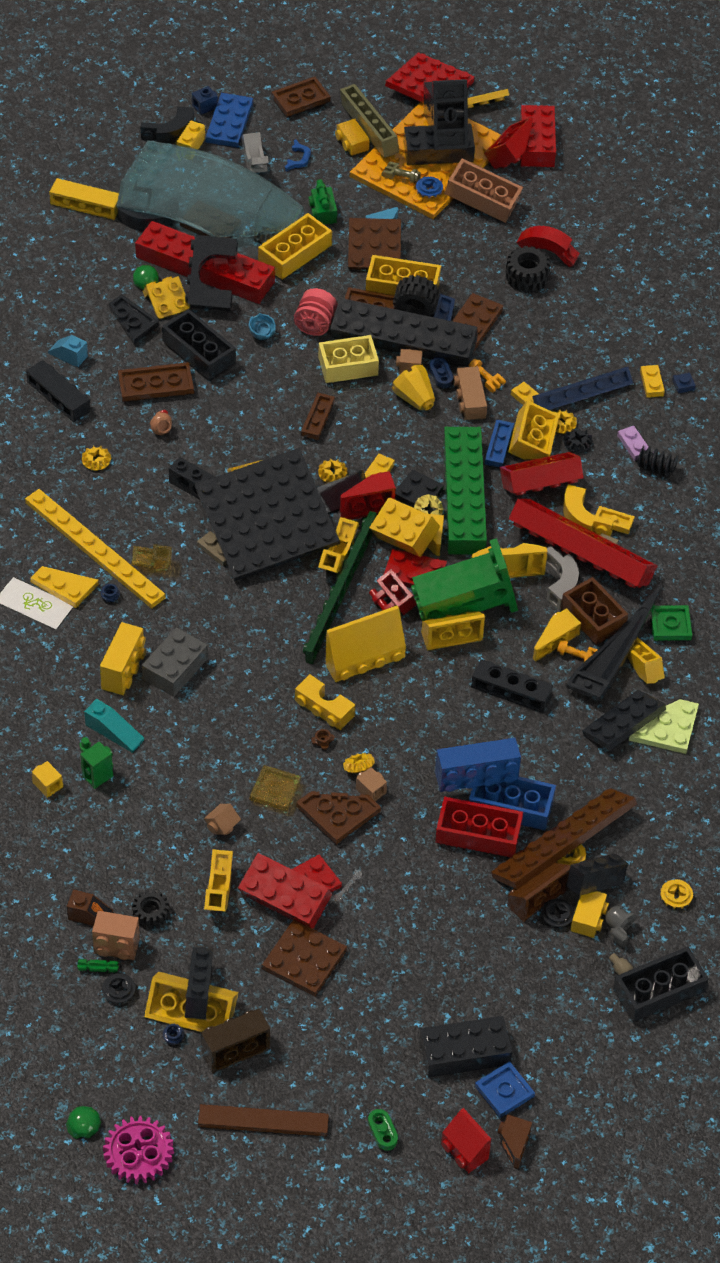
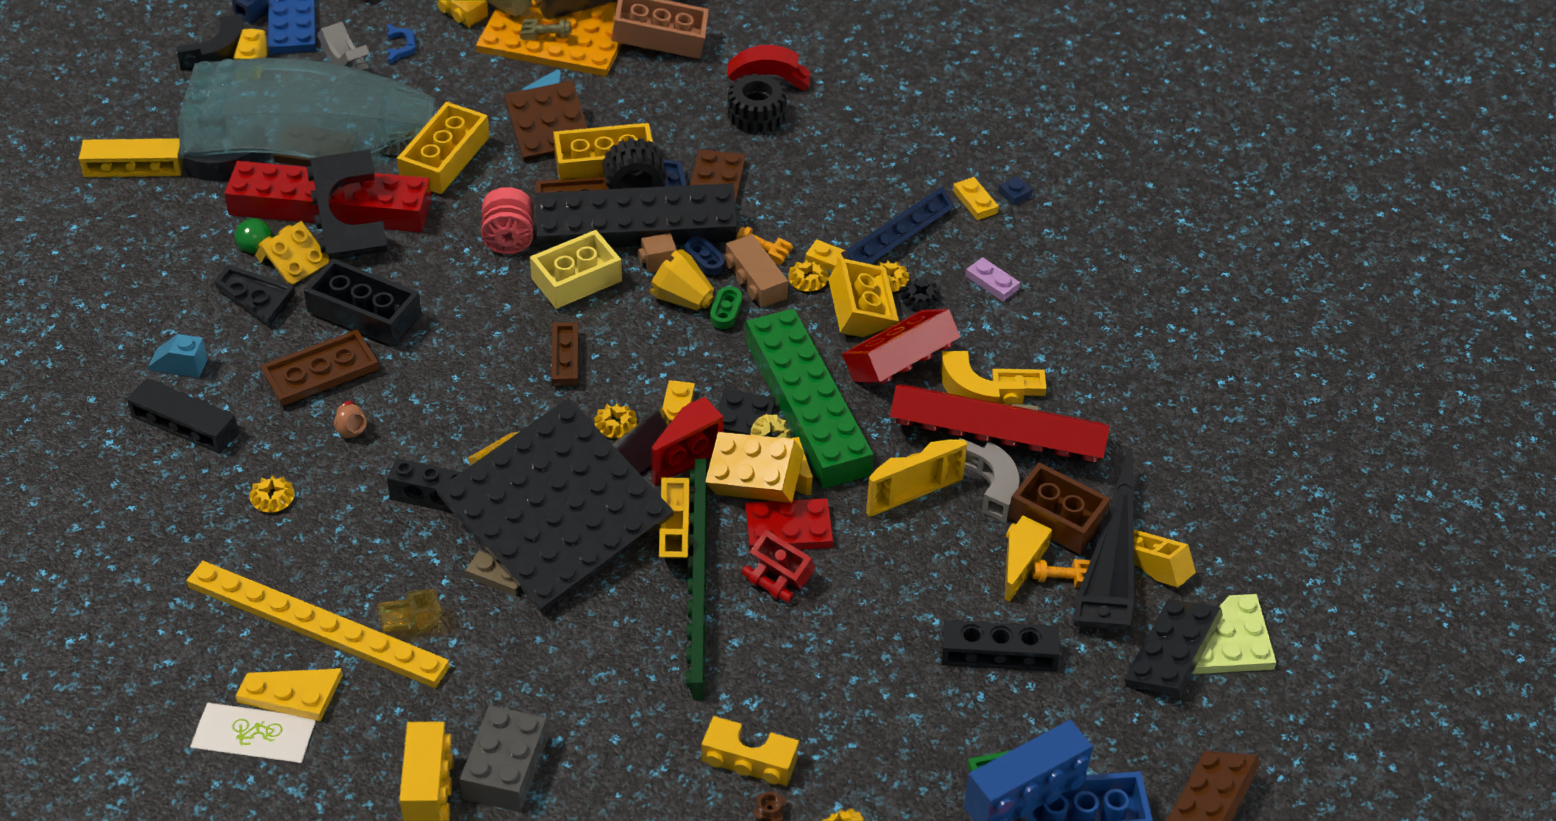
camera: 20 degrees left, 5 degrees down
(110, 593) = (362, 677): dark blue plate -> none
(262, 326) = (440, 258): dark azure hair -> none
(323, 203) = (458, 87): green brick -> none
(365, 644) = (775, 648): yellow slope -> none
(427, 182) = (582, 33): blue gear -> none
(436, 415) = (726, 307): none -> green plate
(453, 630) = (883, 590): yellow slope -> none
(465, 586) = (879, 525): green brick -> none
(499, 443) = (823, 324): blue plate -> none
(506, 411) = (813, 282): none -> yellow gear
(657, 461) = (1038, 292): black piece -> none
(671, 623) = (1163, 496): green plate -> none

